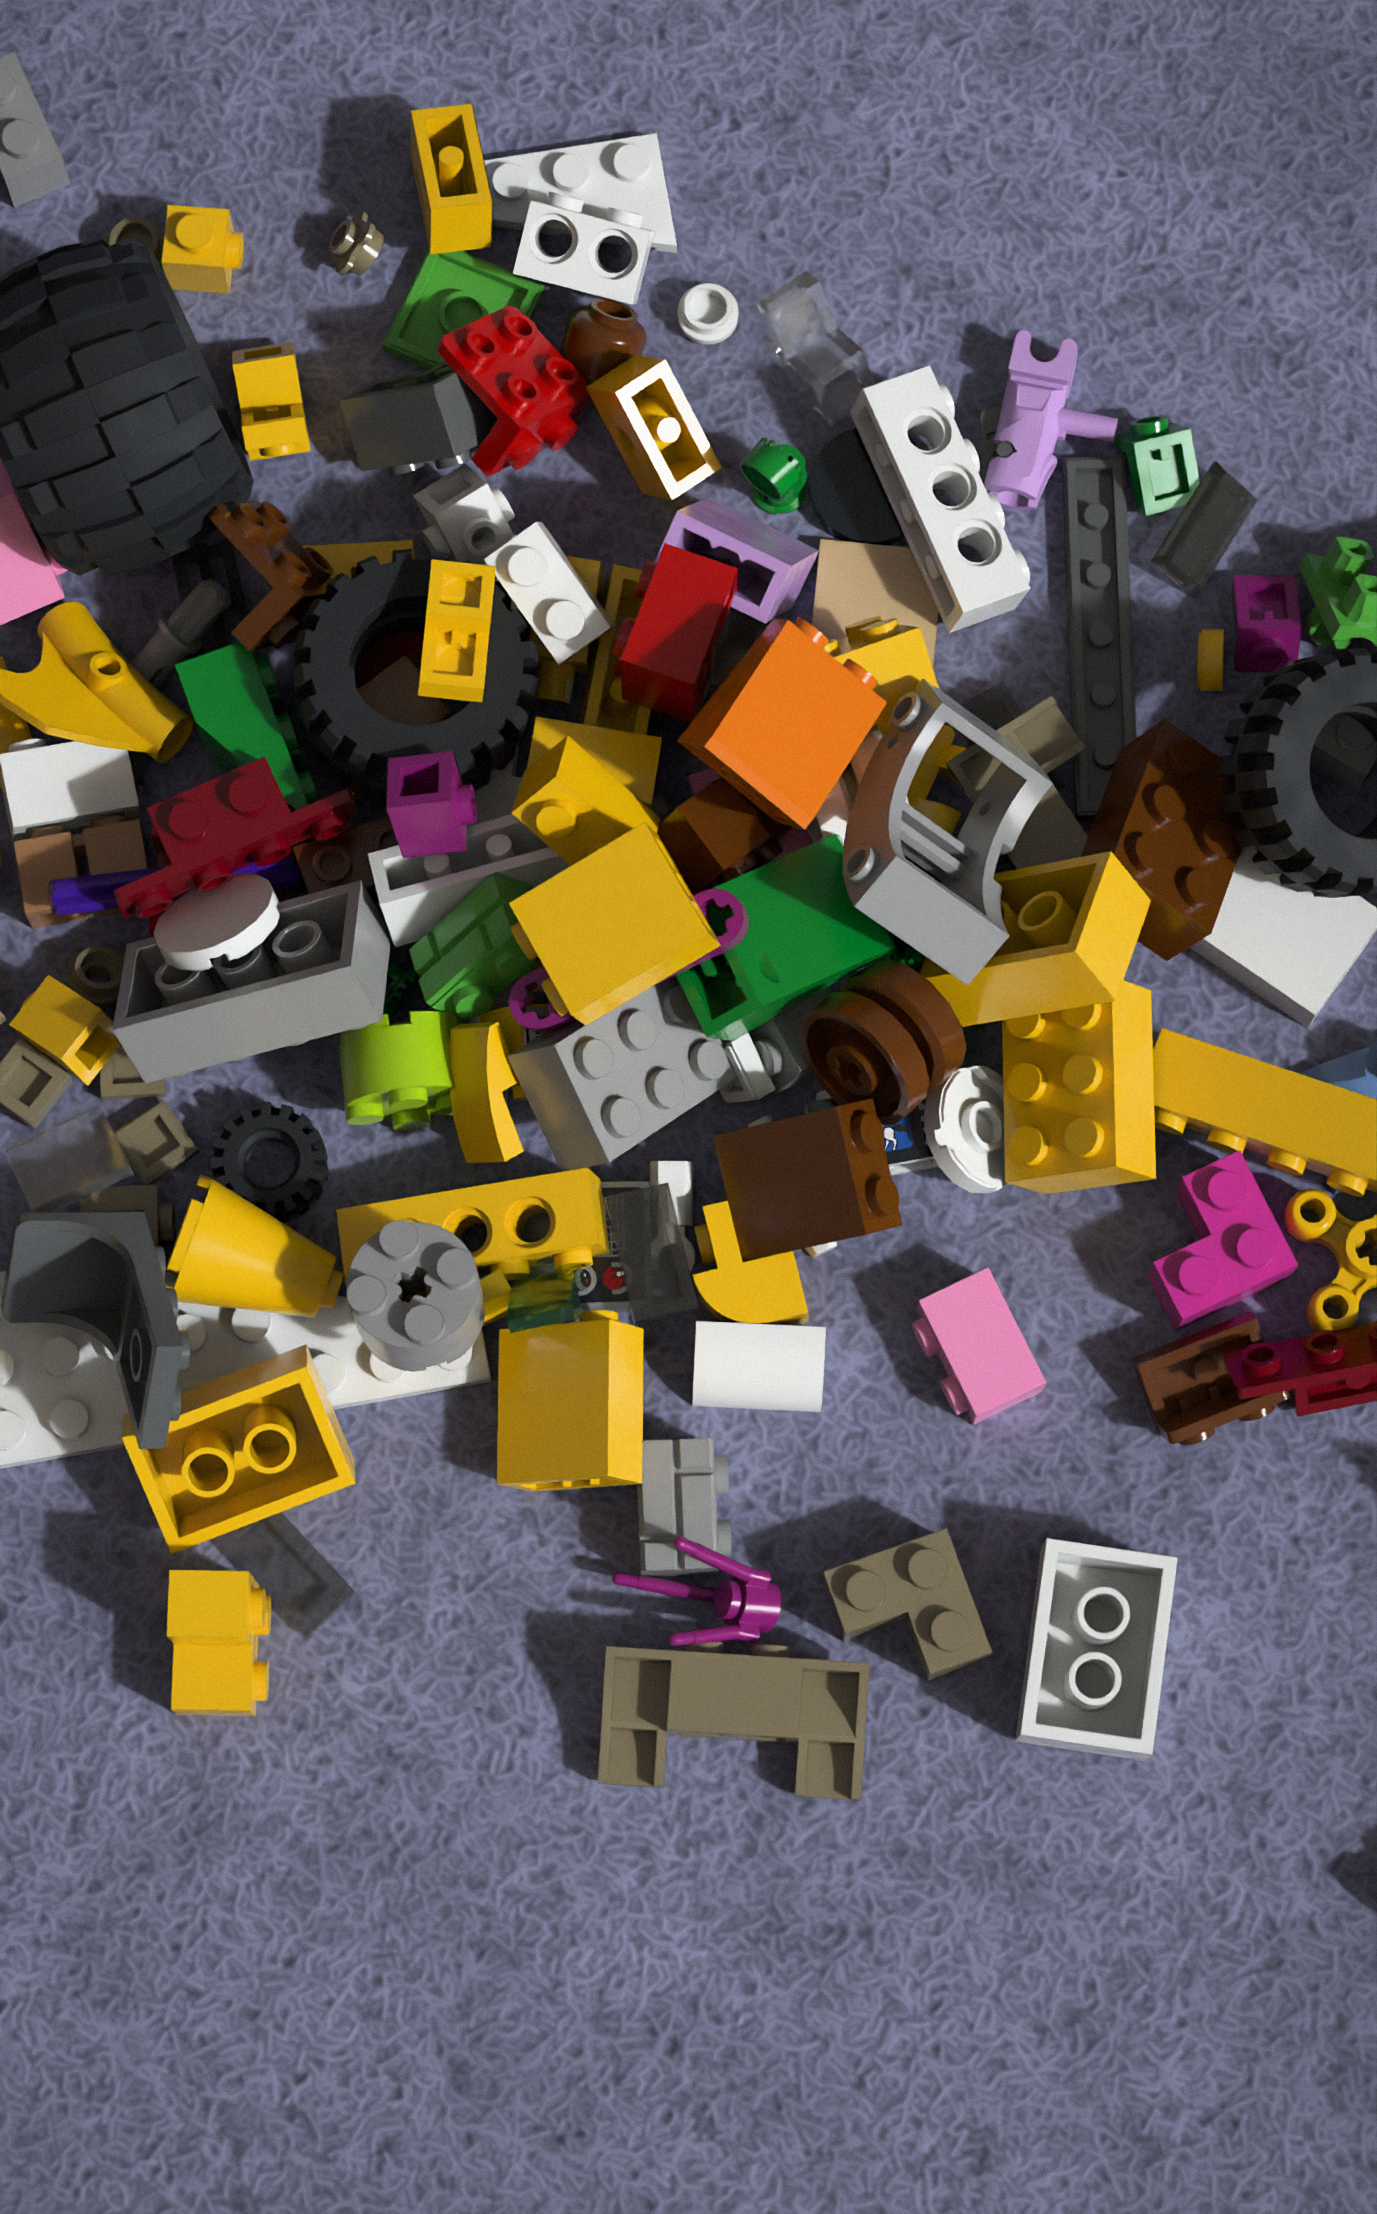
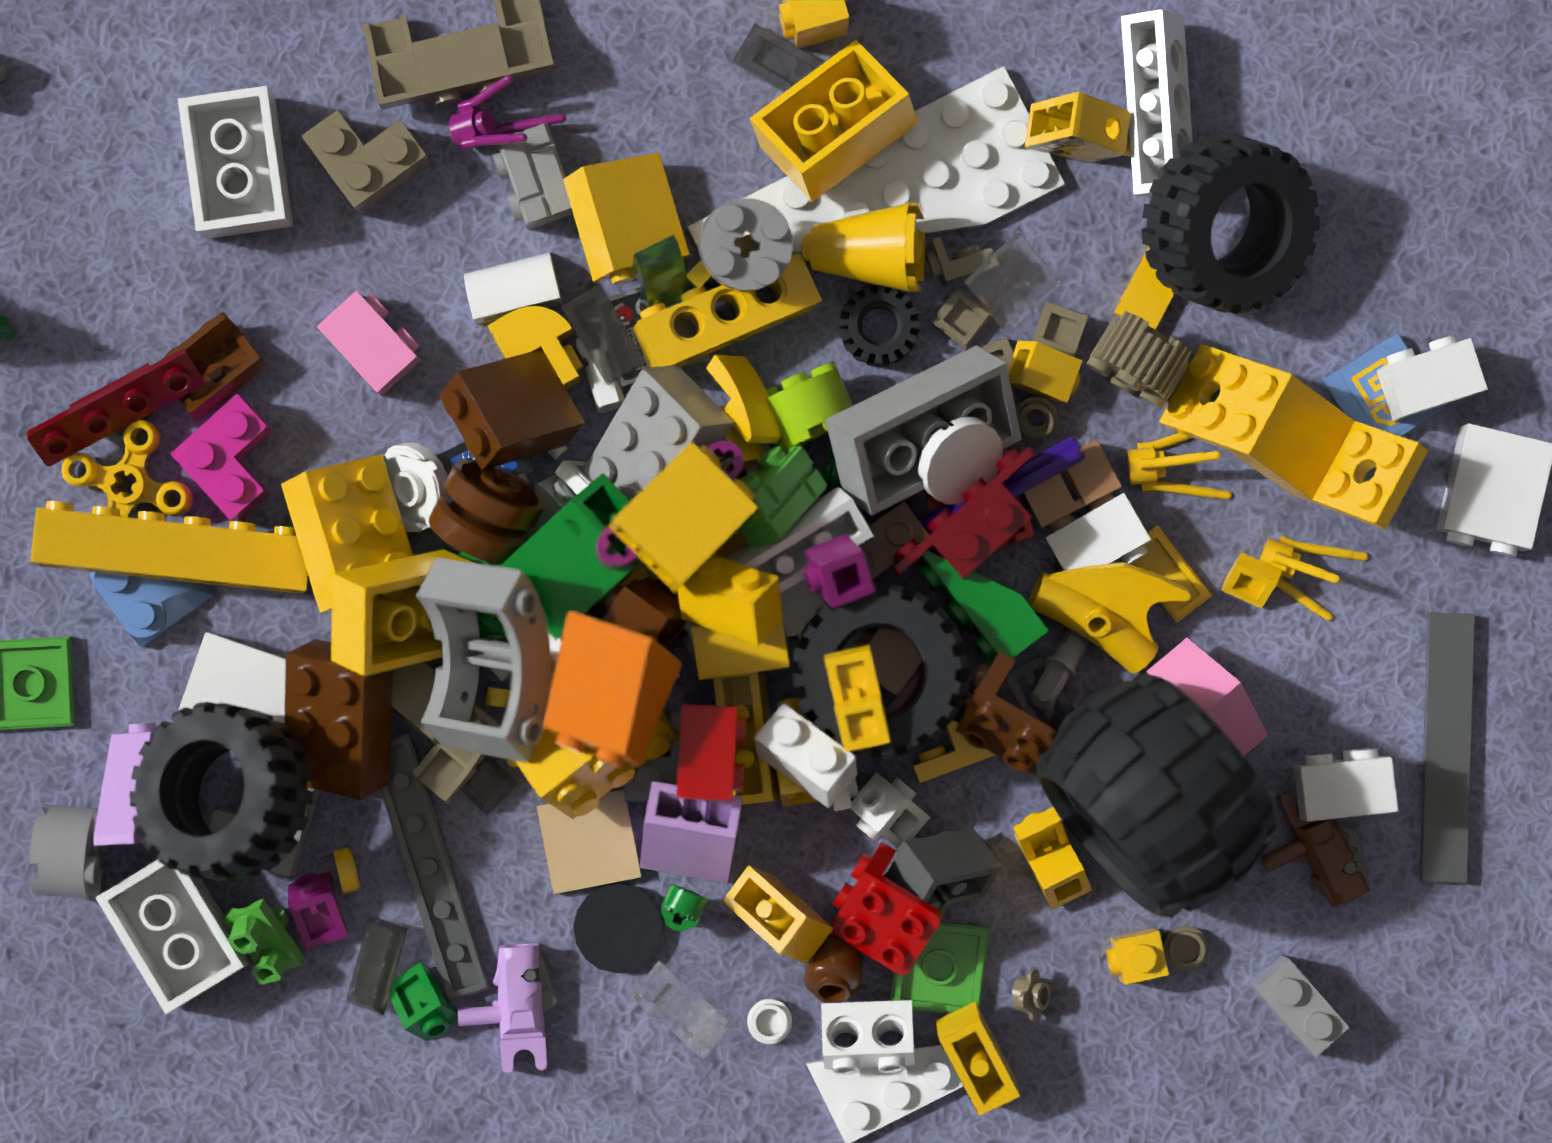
camera: 165 degrees right, 10 degrees up
(110, 1283) = (948, 199): dark grey bracket -> none
(960, 588) = (588, 930): white brick -> none

